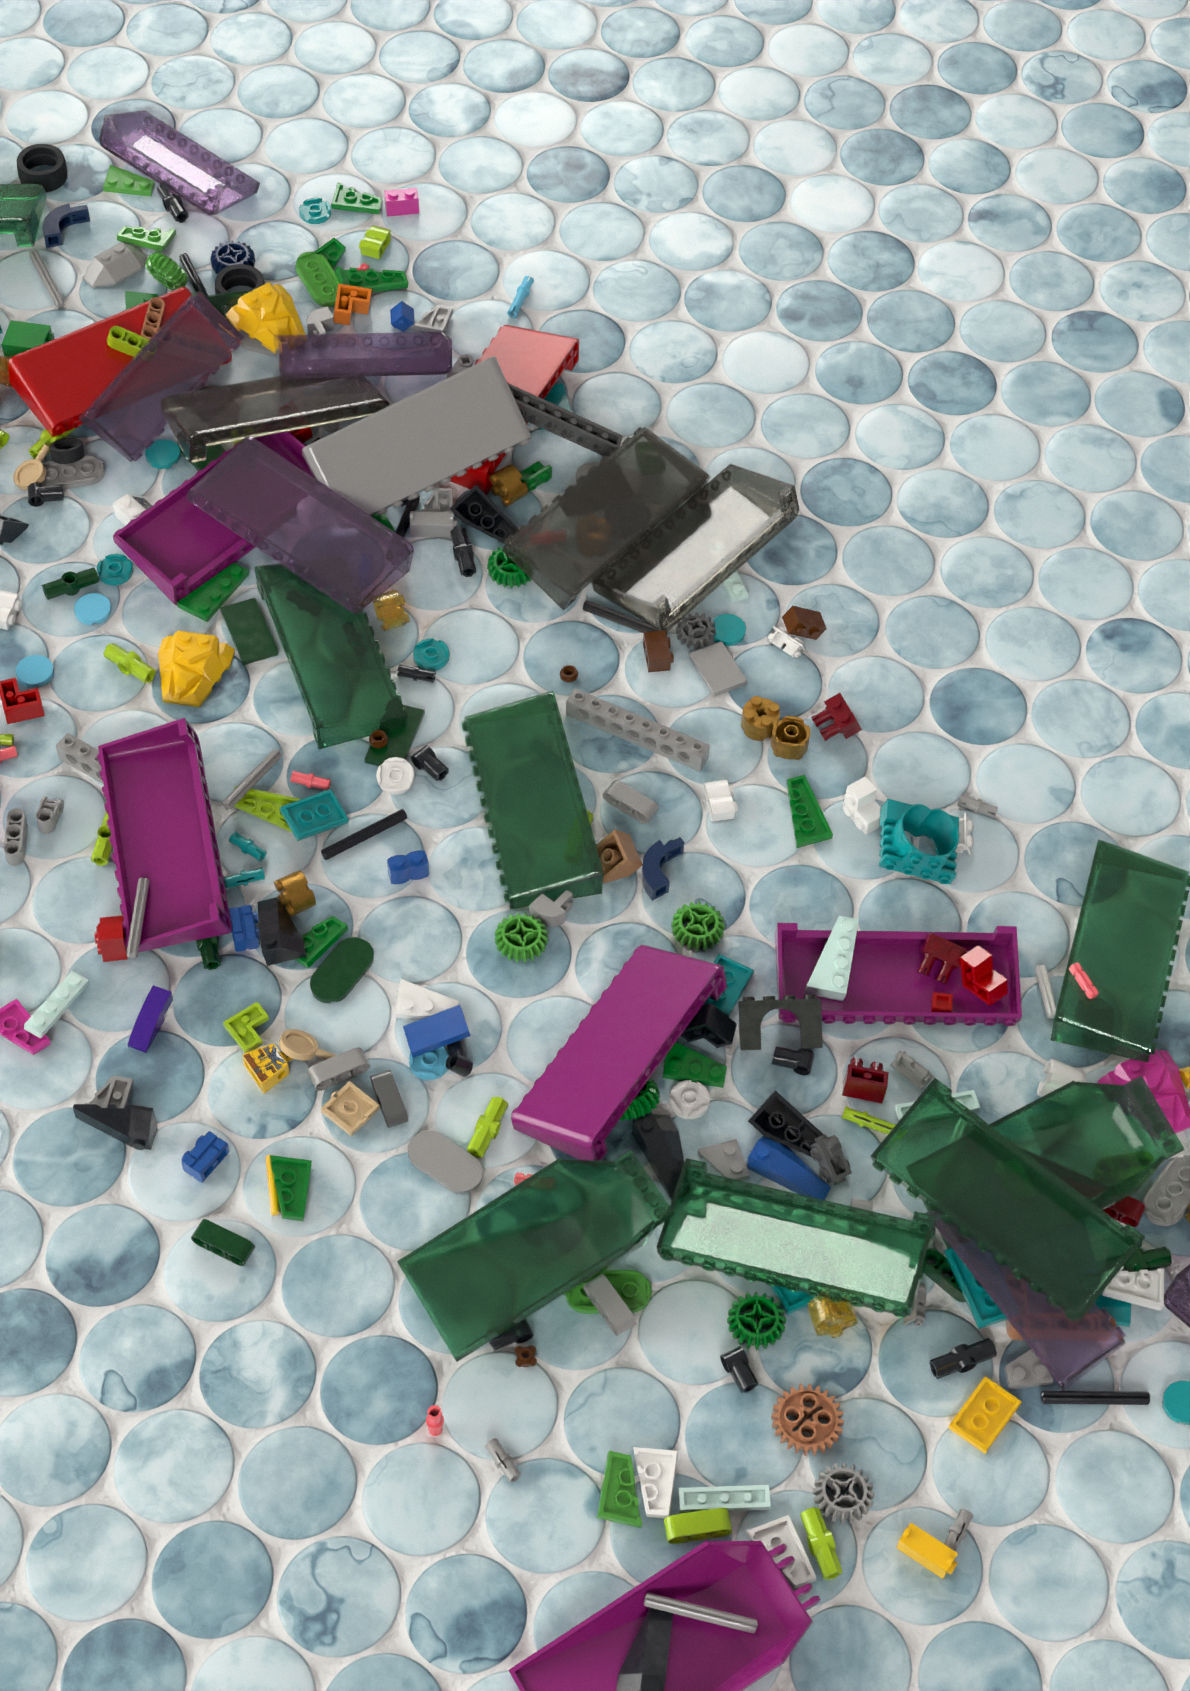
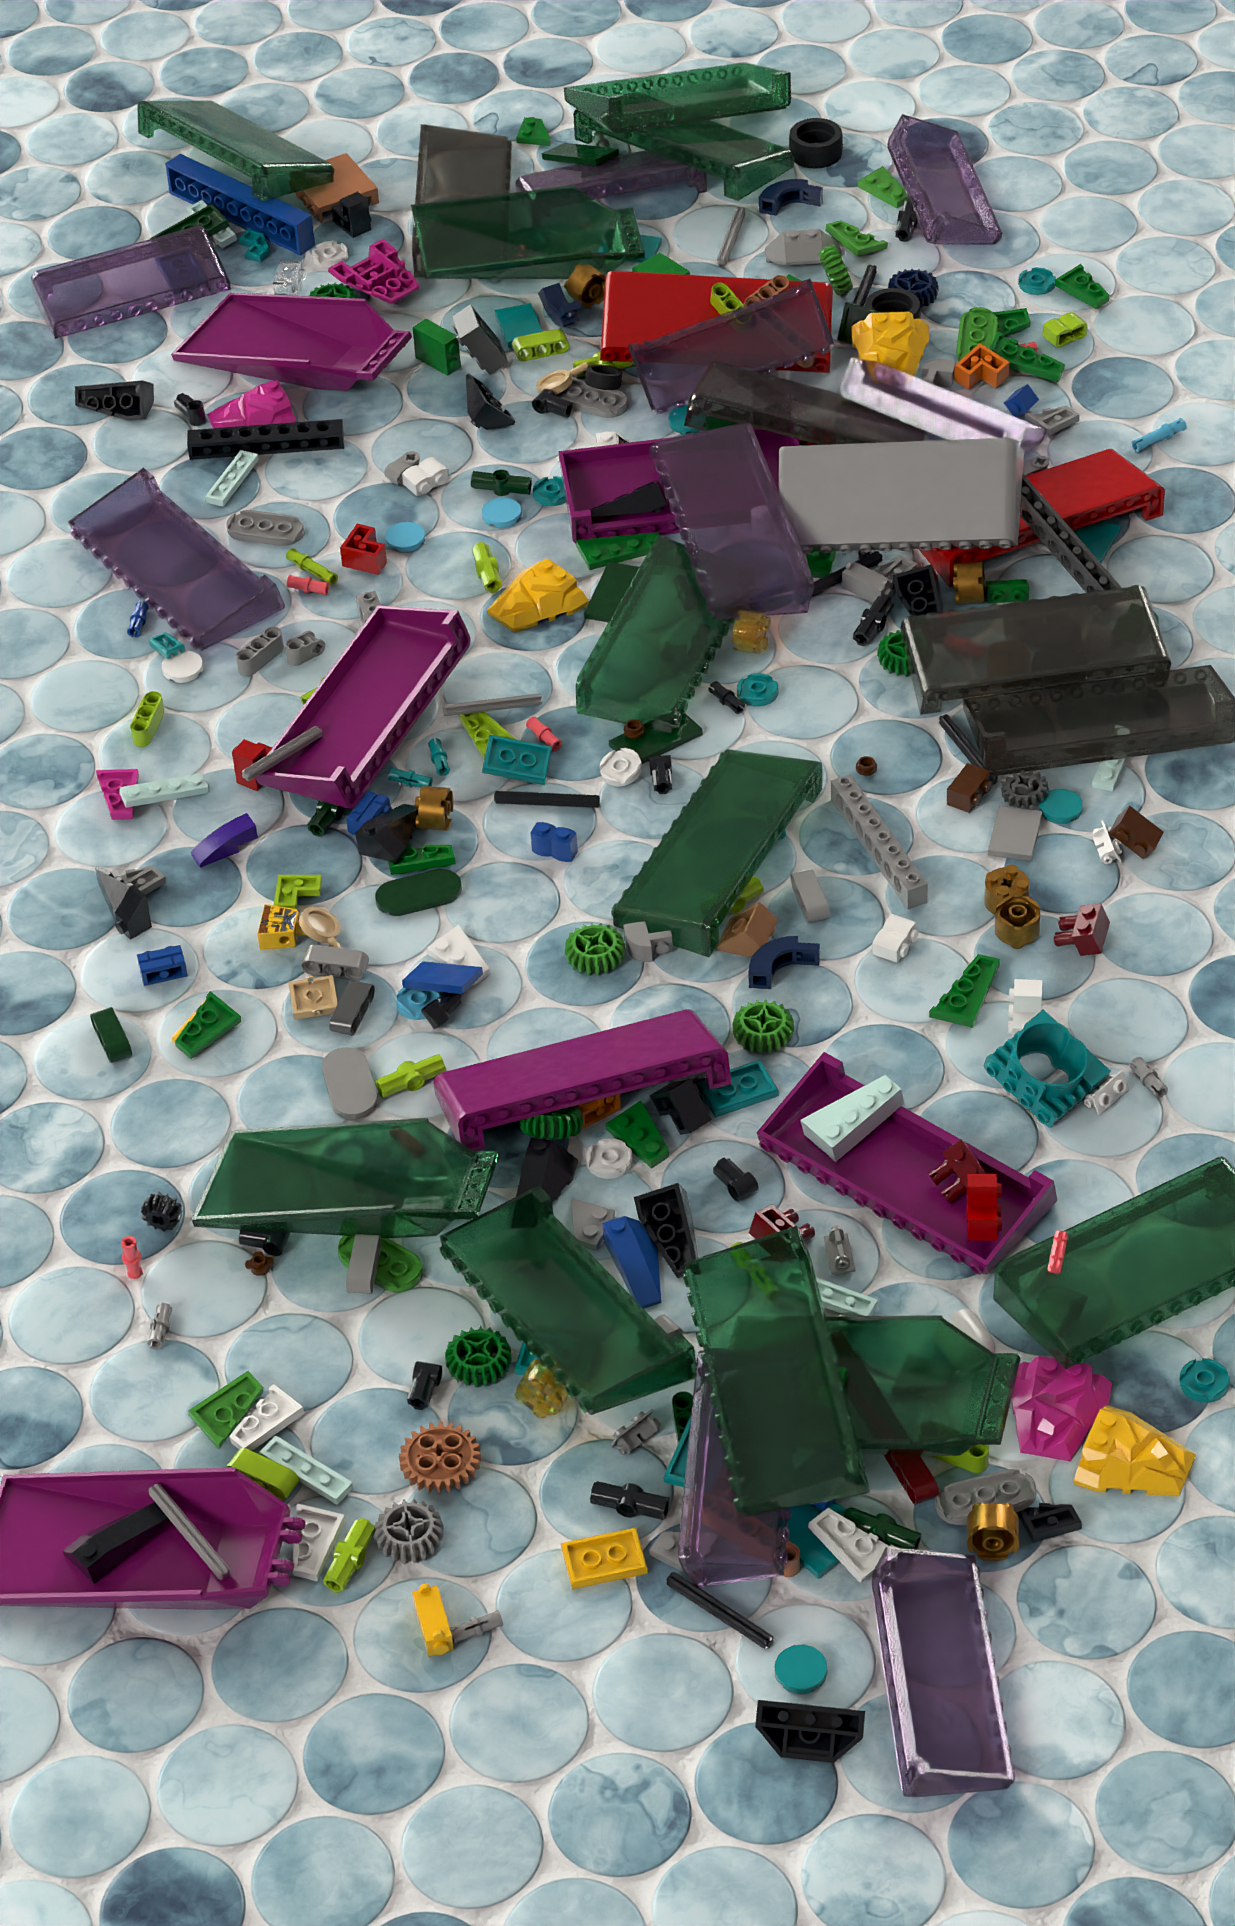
camera: 45 degrees right, 10 degrees down
(205, 541) = (641, 500): none -> black wedge
(401, 202) = (1125, 305): dark pink brick -> none
(417, 1366) = (161, 1211): none -> black gear
(806, 1010) = (728, 1115): pearl dark grey arch -> none
(831, 1159) = (675, 1268): dark grey brick -> none
(941, 1002) = (928, 1214): red tile -> none

